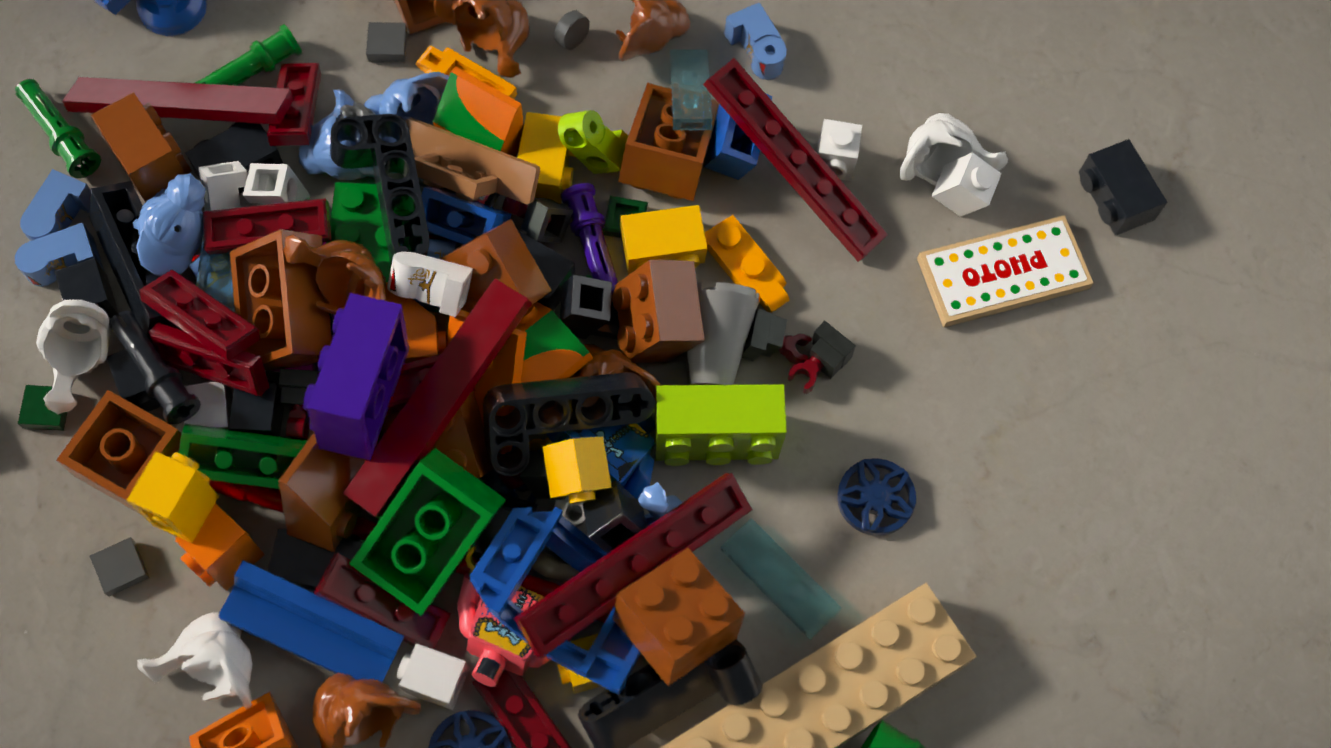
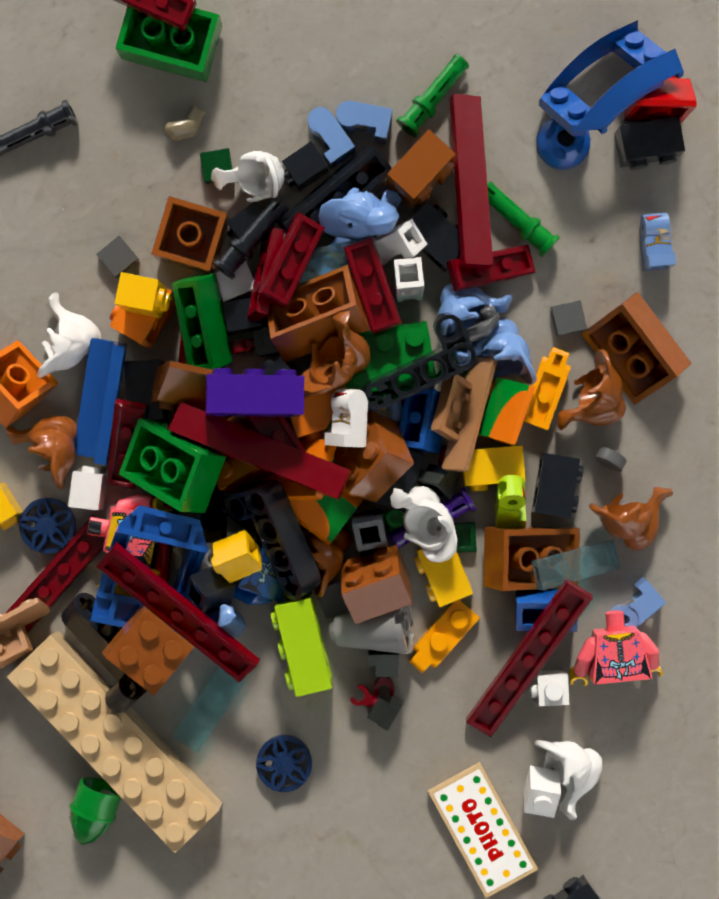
camera: 85 degrees right, 20 degrees up
(582, 87) = (557, 485): none -> black brick
(584, 232) = (423, 522): none -> white piece
(809, 63) = (616, 654): none -> coral torso

